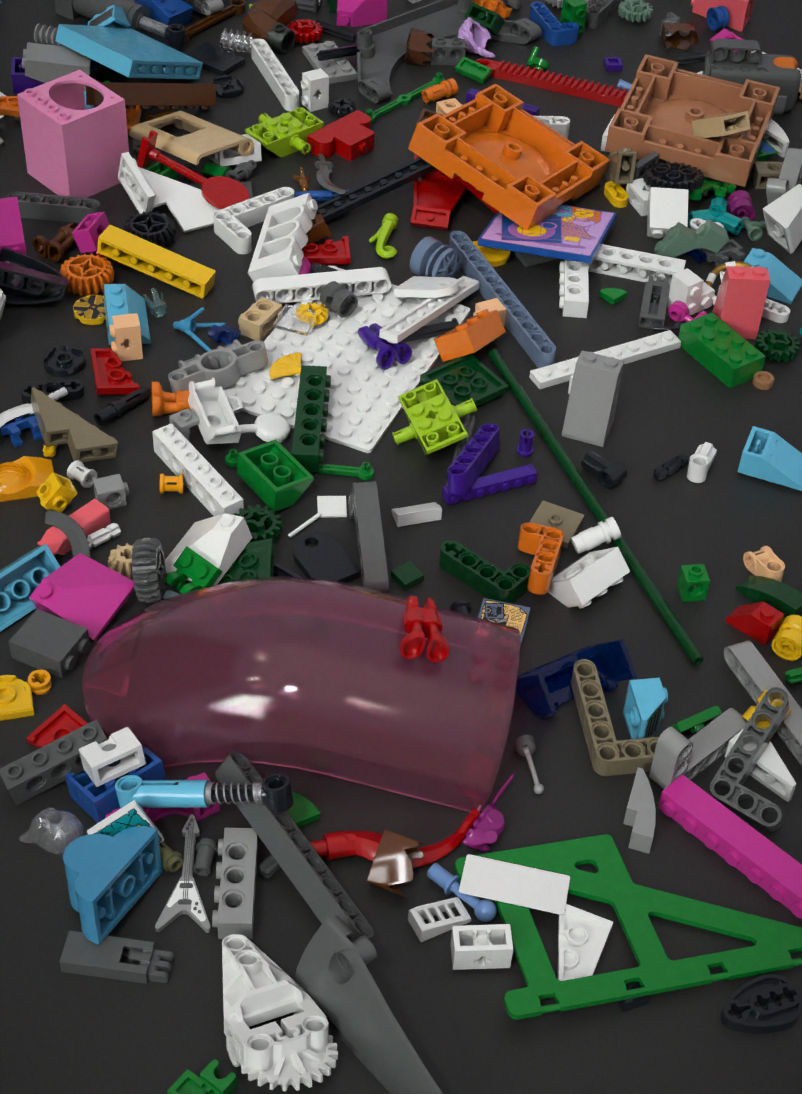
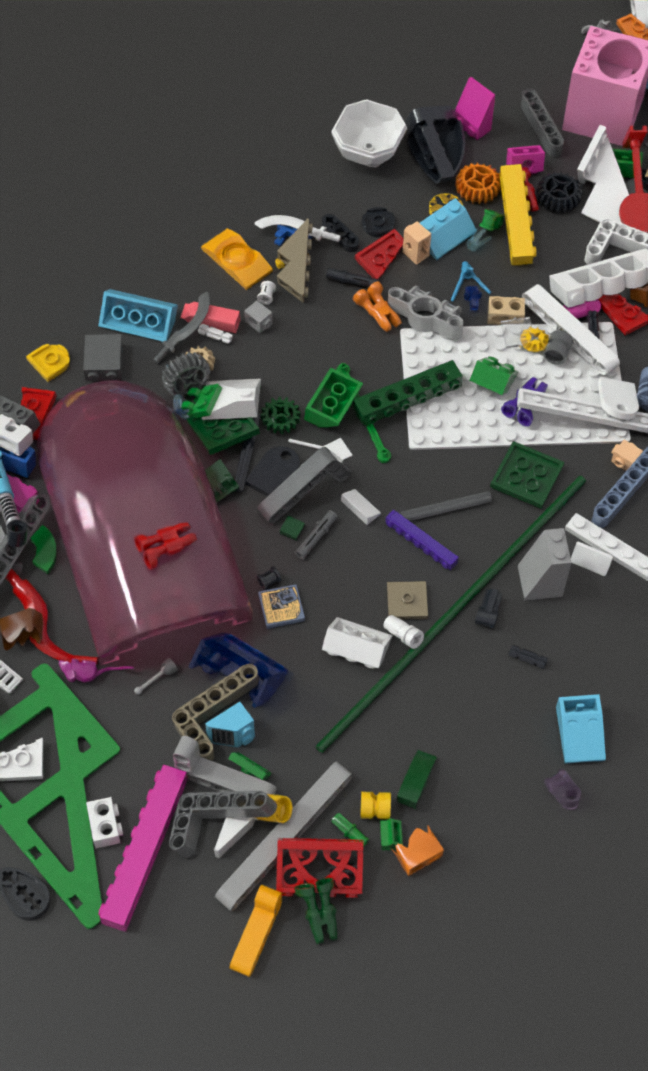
camera: 65 degrees right, 15 degrees up
(45, 679) = (74, 374): light orange bush -> none
(54, 249) = (494, 147): reddish brown piece -> none
(56, 492) = (234, 288): yellow brick -> none
(83, 594) = (149, 349): dark pink slope -> none
(142, 281) = (492, 220): none -> green piece
(171, 479) = (290, 346): light orange bush -> none
(183, 421) = (348, 322): light grey bracket -> none
(198, 473) = (307, 355): white brick -> none
(218, 420) = (367, 336): white piece -> none
(286, 365) = (462, 353): yellow hand -> none
(337, 350) = (494, 375): none -> green slope
(426, 552) = (321, 528): none -> dark grey pin
(432, 330) = (574, 427): black axle -> none
(432, 417) = (458, 471): lime slope -> none
(470, 336) = (583, 454): orange wedge -> none
(473, 459) = (433, 515): dark purple beam -> none
(482, 575) = (319, 570): dark green beam -> none
(484, 909) = (30, 664): medium blue pin -> none
(515, 884) = (42, 705): white sticker -> none
(525, 446) = (480, 544): dark purple pin -> none
(546, 545) = (328, 607): orange beam -> none
(641, 813) = (147, 760): light grey slope -> none
(693, 582) = (394, 716): green brick -> none
(701, 462) = (545, 675): white piece -> none
(706, 881) = (100, 823): none -> white brick
(757, 621) = (381, 774): red slope -> none
(764, 563) = (451, 760): light nougat piece -> none

